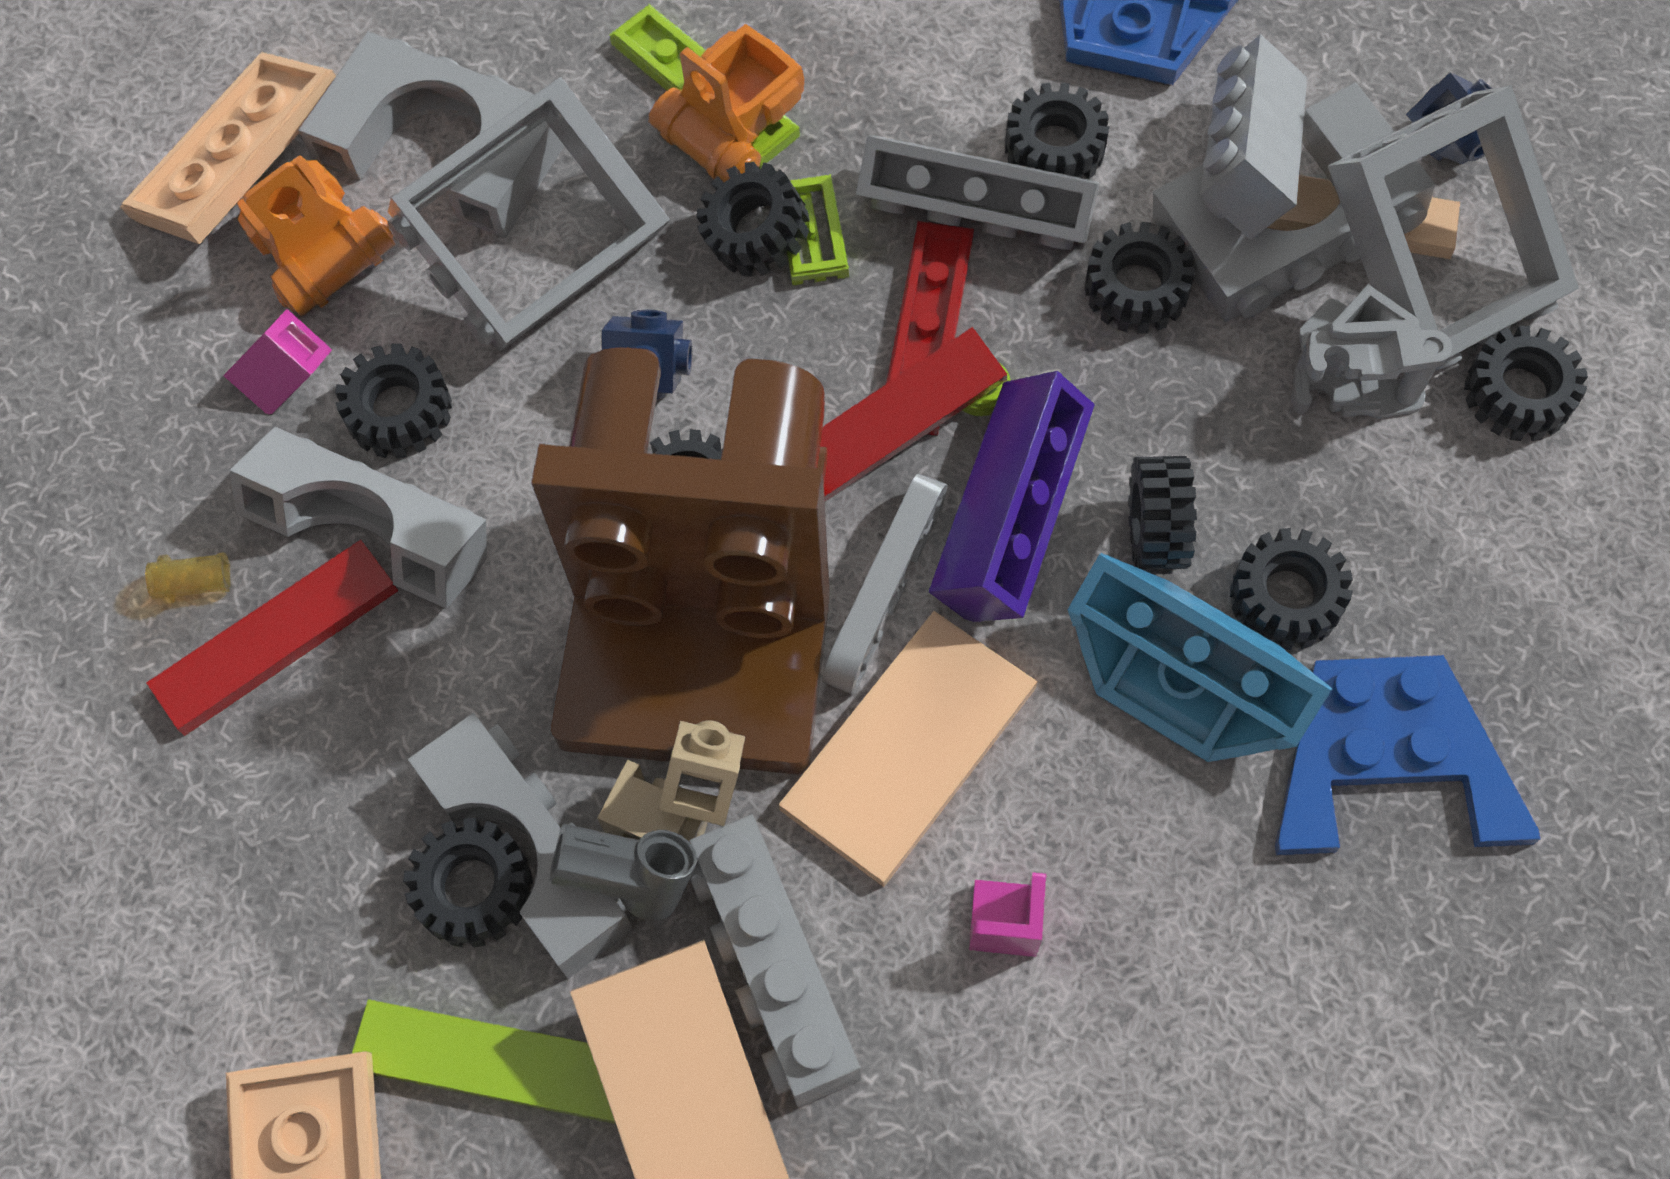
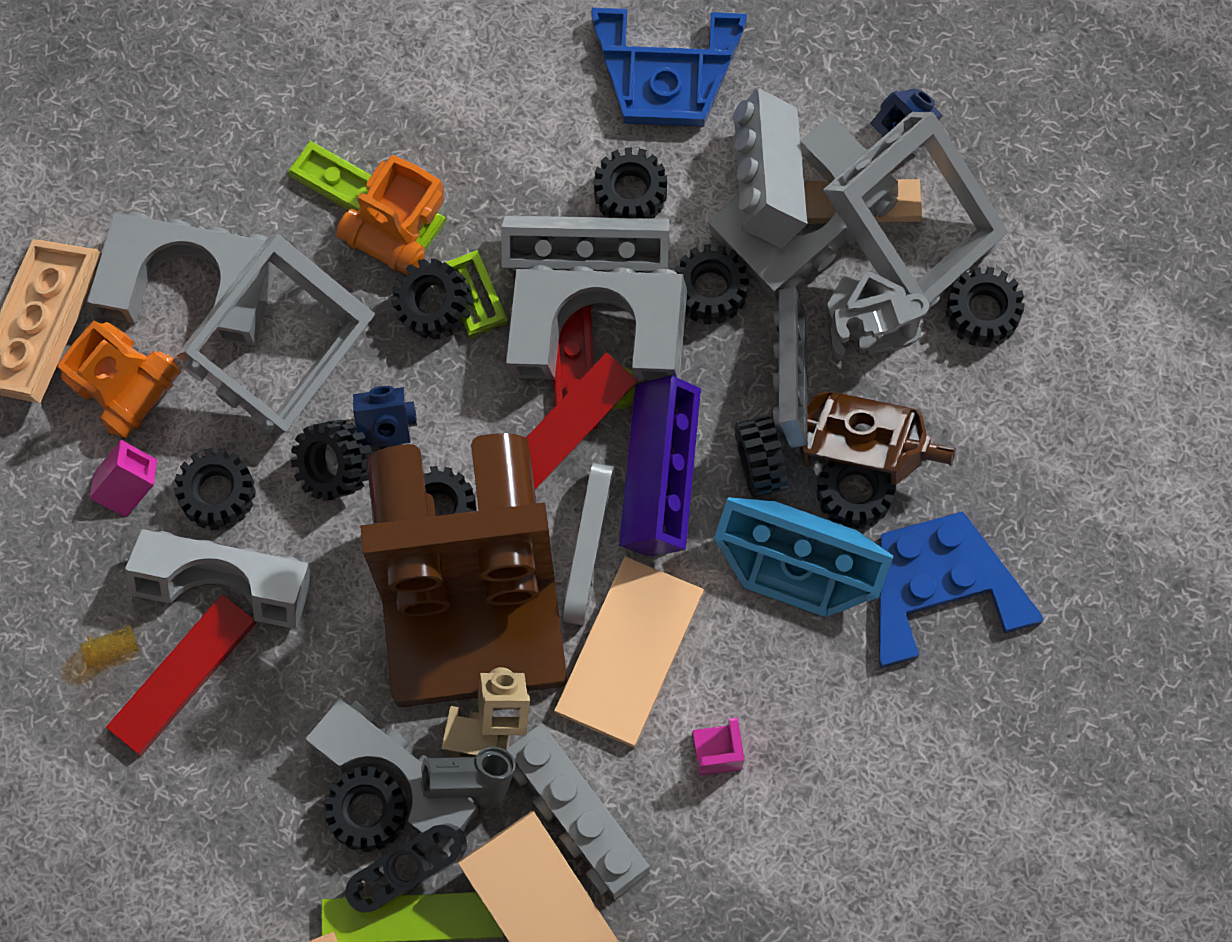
camera: 15 degrees left, 5 degrees up
(467, 975) = (372, 872): none -> black beam
(535, 386) = (313, 464): none -> black tyre
(913, 244) = (549, 297): none -> light grey arch
(1228, 415) = (791, 357): none -> flat silver plate
(1357, 529) = (892, 445): none -> reddish brown plate

